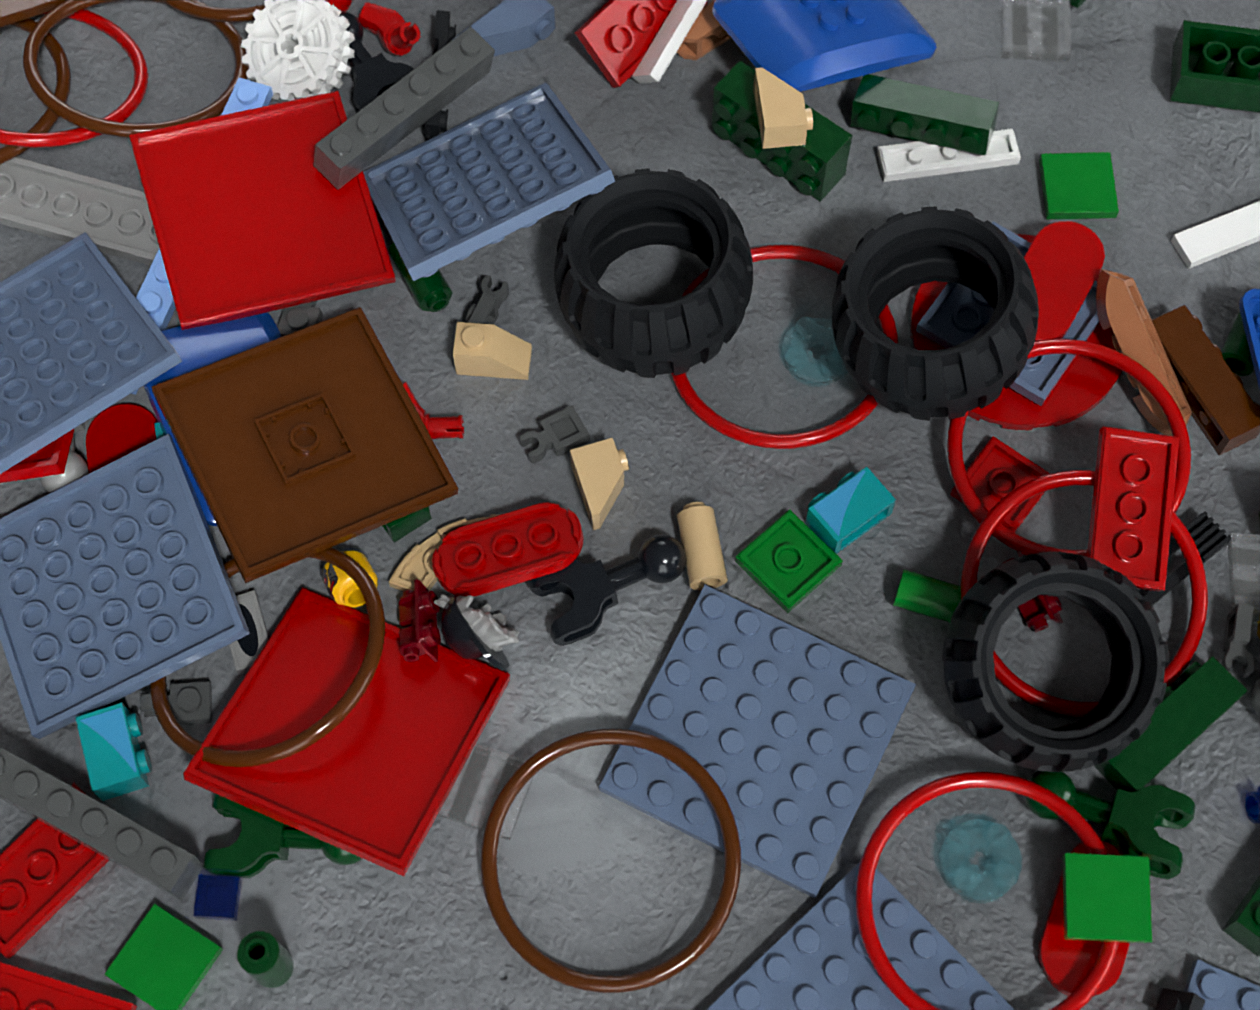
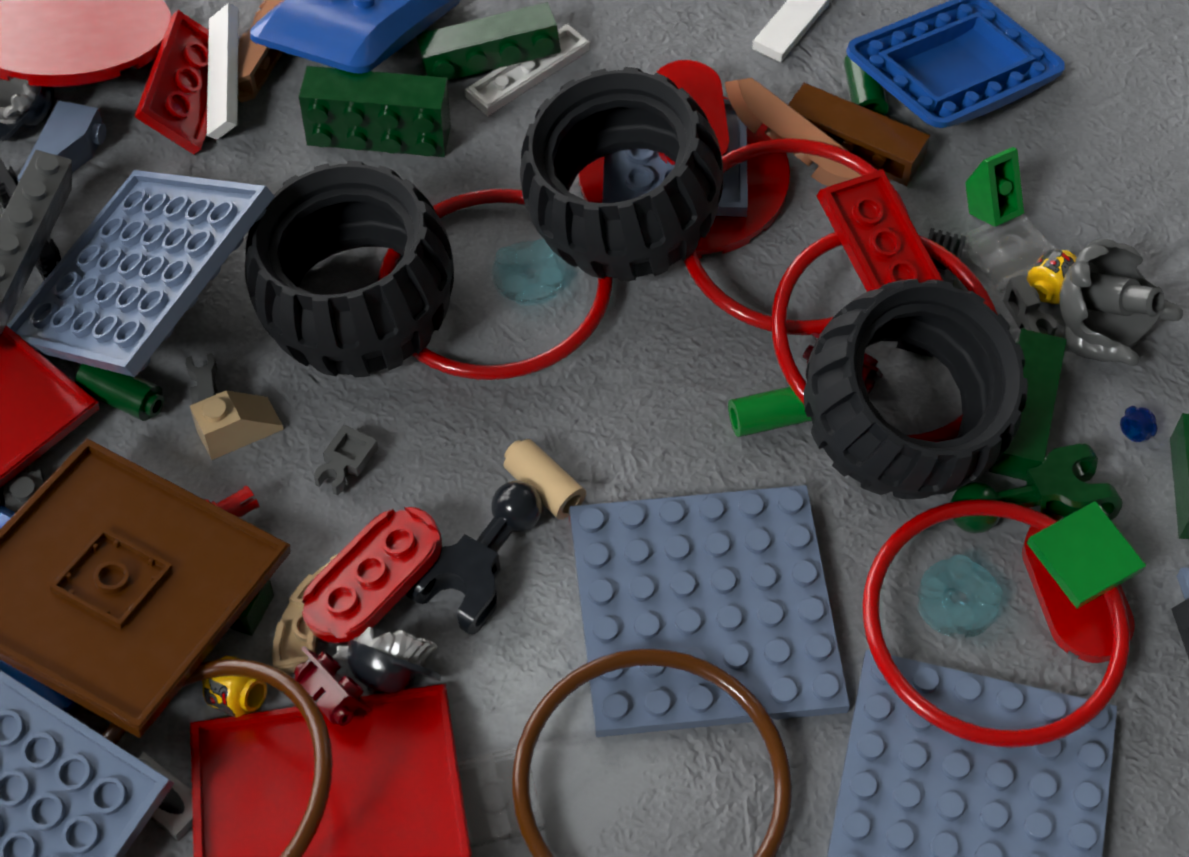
camera: 35 degrees left, 10 degrees down
(599, 477) = (408, 471): tan slope -> none
(780, 111) = (373, 84): tan slope -> none
(788, 561) = (625, 451): green tile -> none
(849, 509) = (649, 380): teal brick -> none
(999, 472) = (755, 288): red tile -> none
(1078, 185) = (650, 40): green tile -> none

